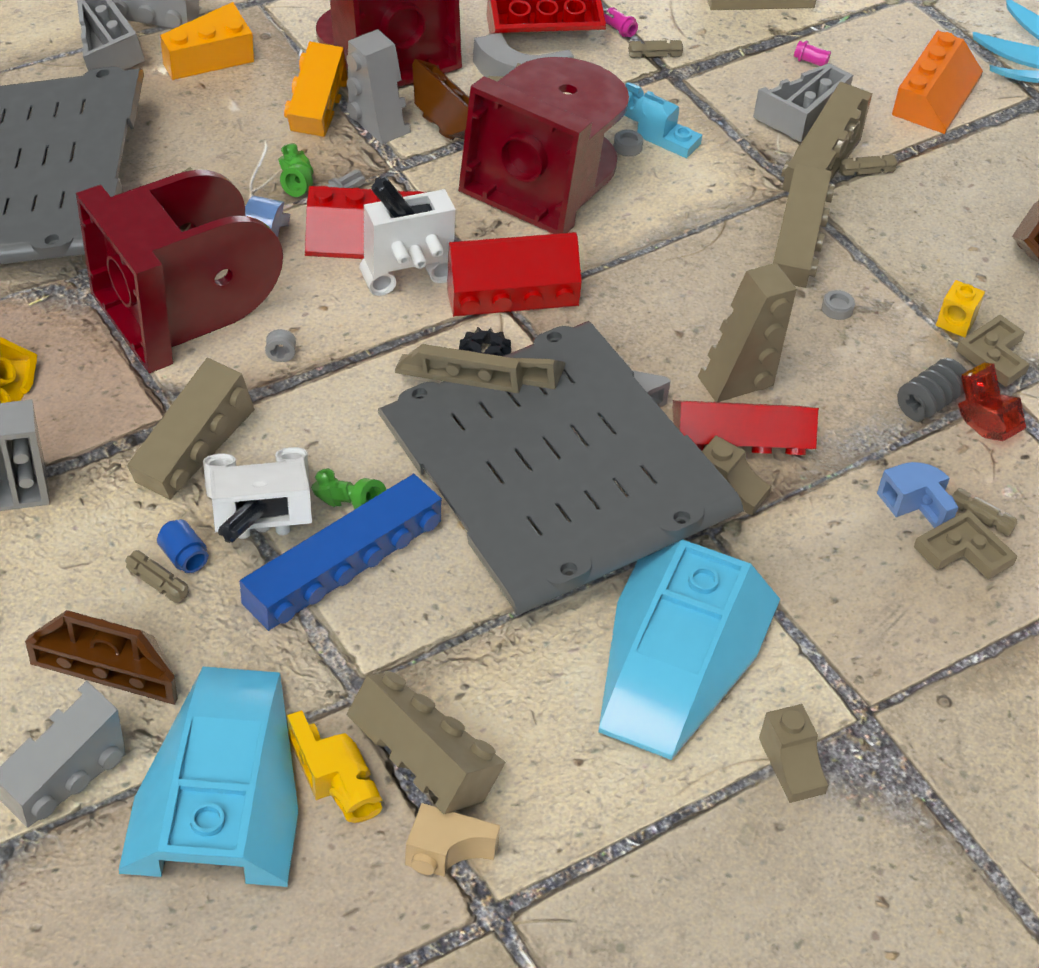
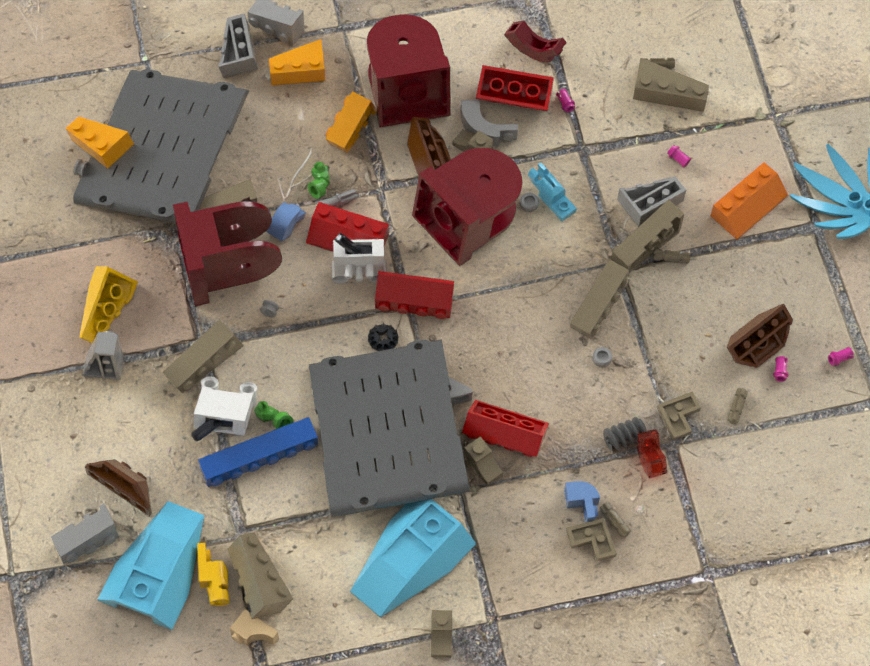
camera: 20 degrees right, 15 degrees up
(157, 576) = (161, 440): dark tan axle -> none
(182, 546) = (178, 427): blue brick -> none
(373, 86) = (382, 134): light grey wedge -> none
(480, 368) = (371, 359): dark tan wedge -> none
(655, 48) = (578, 127): dark tan axle -> none
(751, 336) = (524, 380): dark tan wedge -> none
(960, 308) = (670, 381): yellow brick -> none

